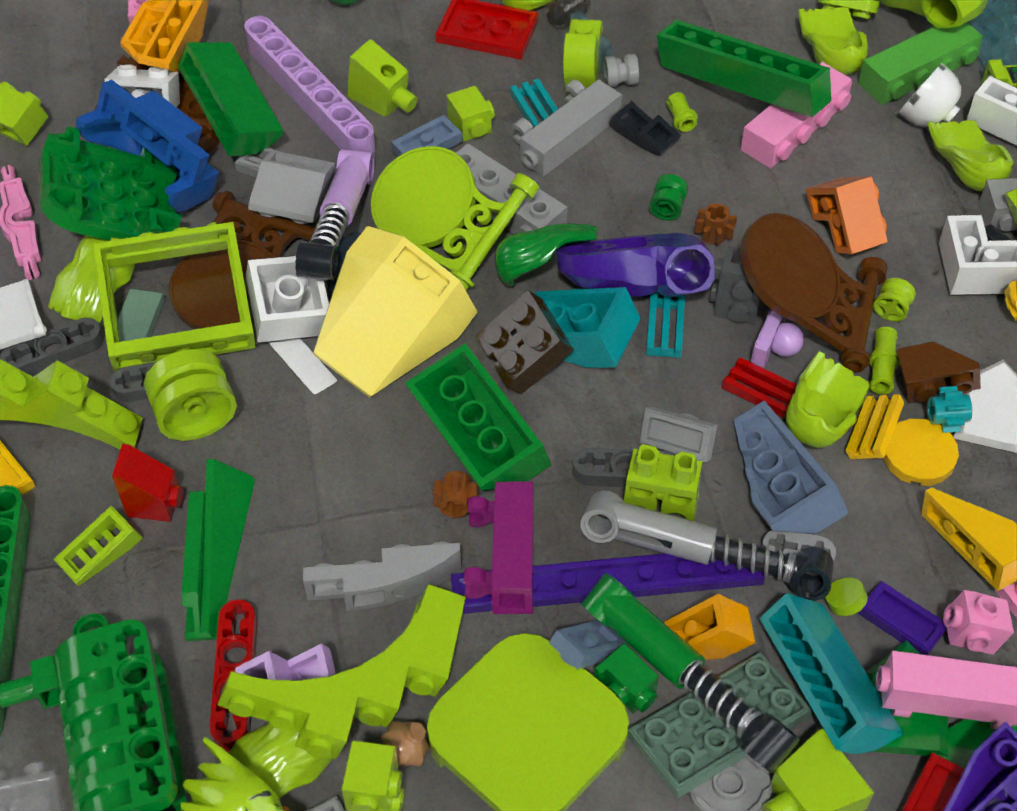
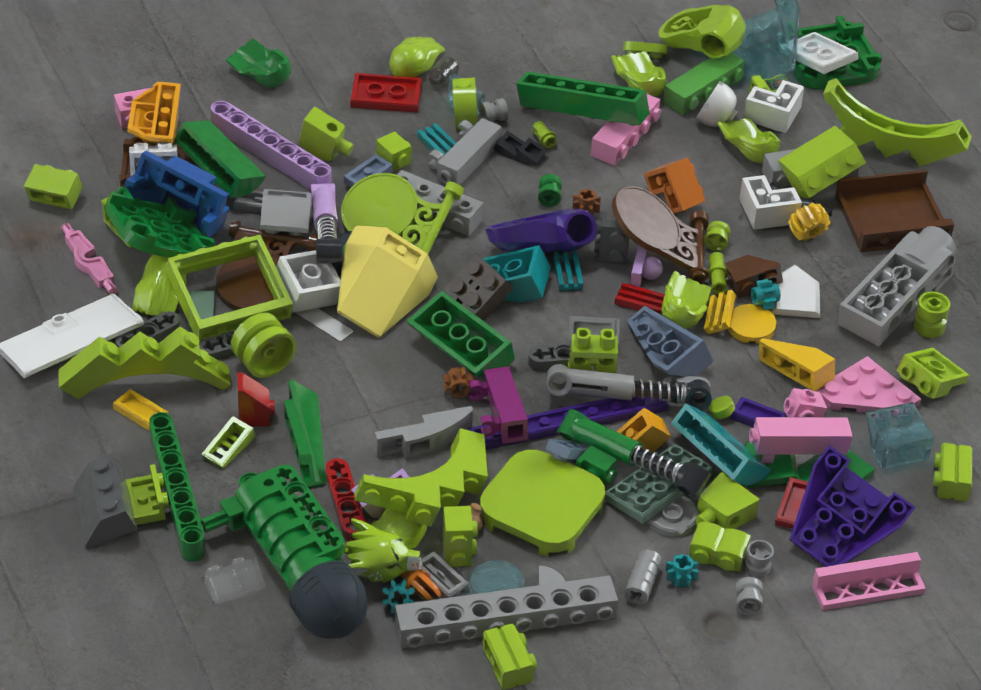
camera: 15 degrees left, 10 degrees down
(534, 248) = (469, 230): green hair -> none

